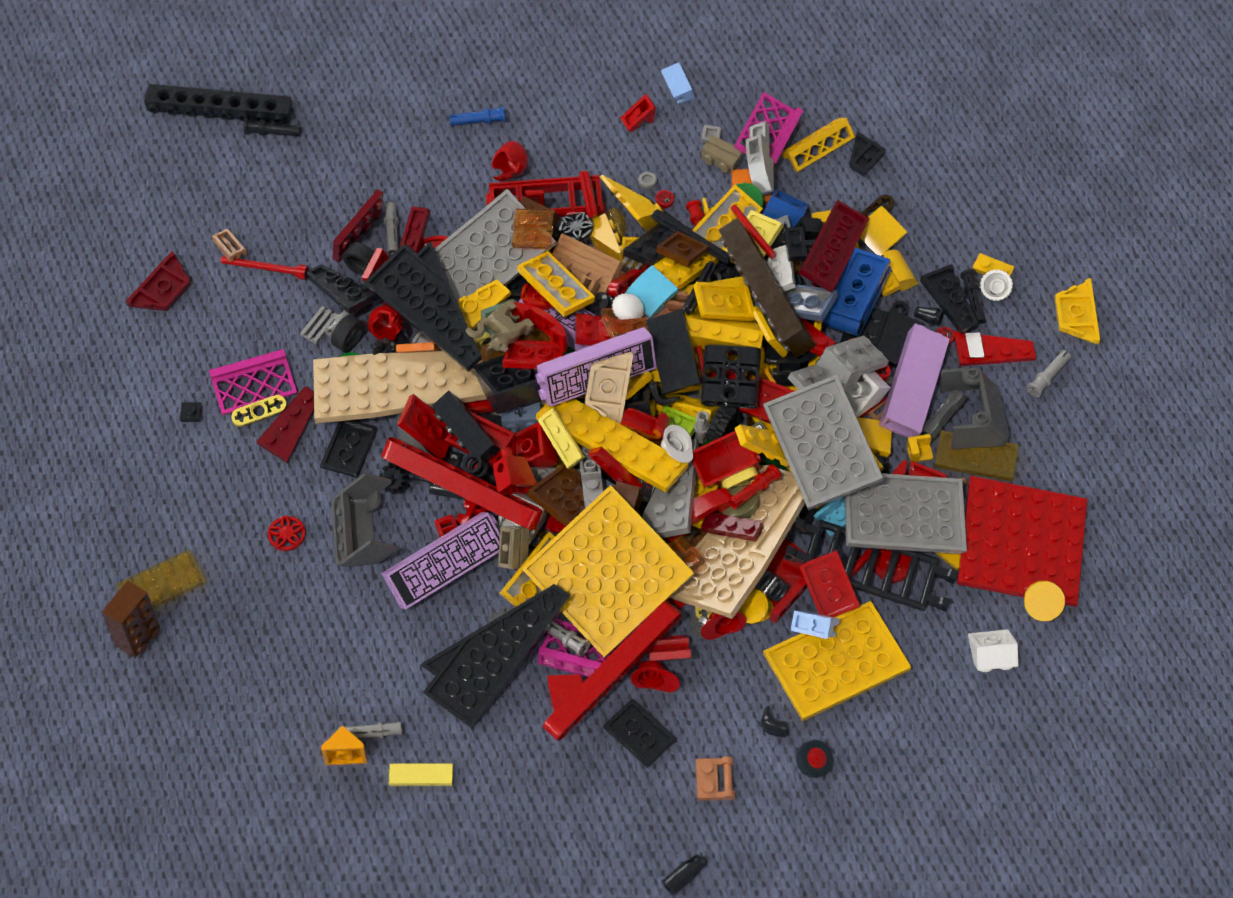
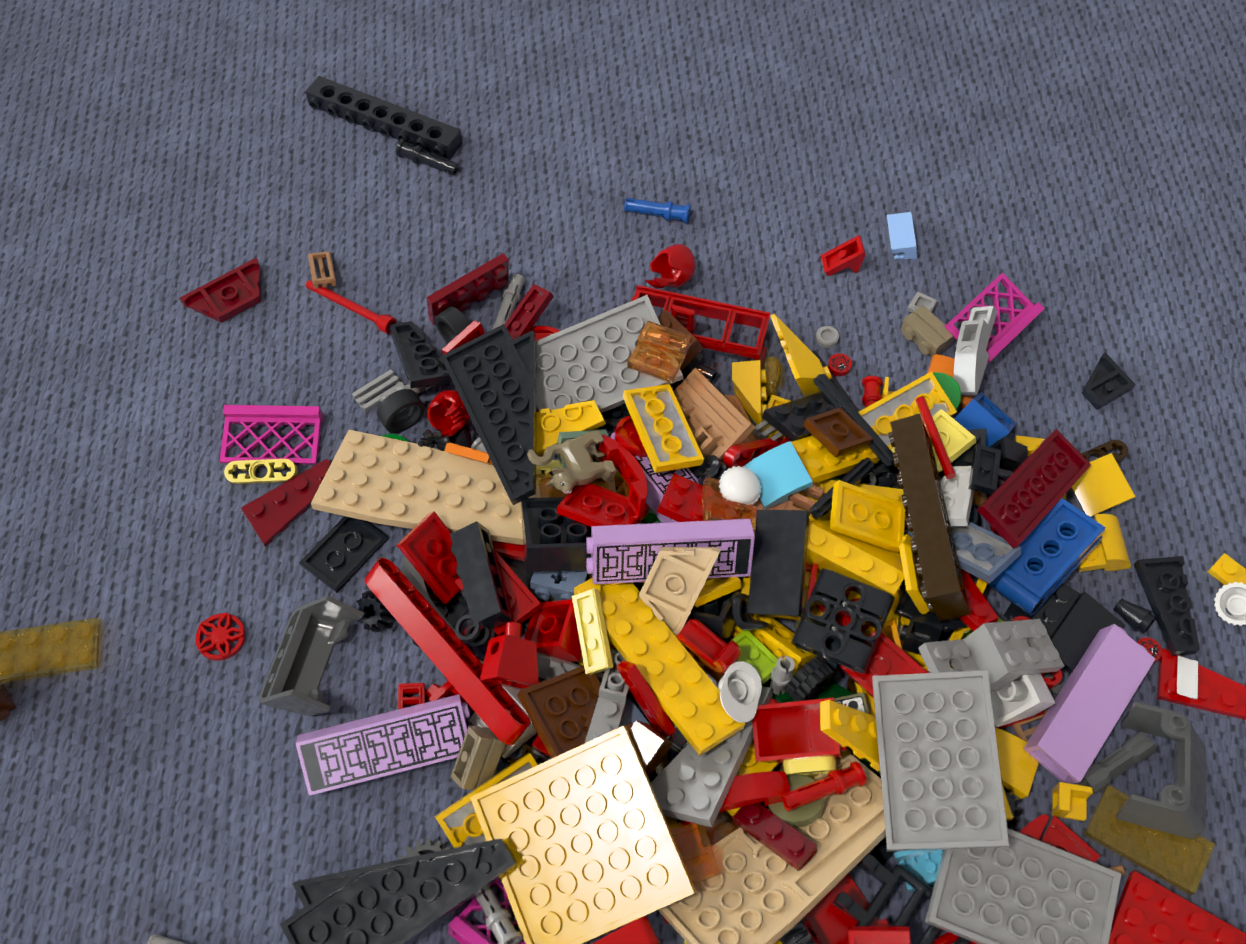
camera: 20 degrees right, 0 degrees up
(190, 411) = (186, 447): black plate -> none
(577, 227) = (720, 366): black wheel -> none
(588, 194) = (747, 331): red axle -> none
(814, 139) = (1049, 345): yellow fence -> none
(901, 304) = (1101, 589): black bush -> none
(972, 289) = (1202, 597): black pin -> none

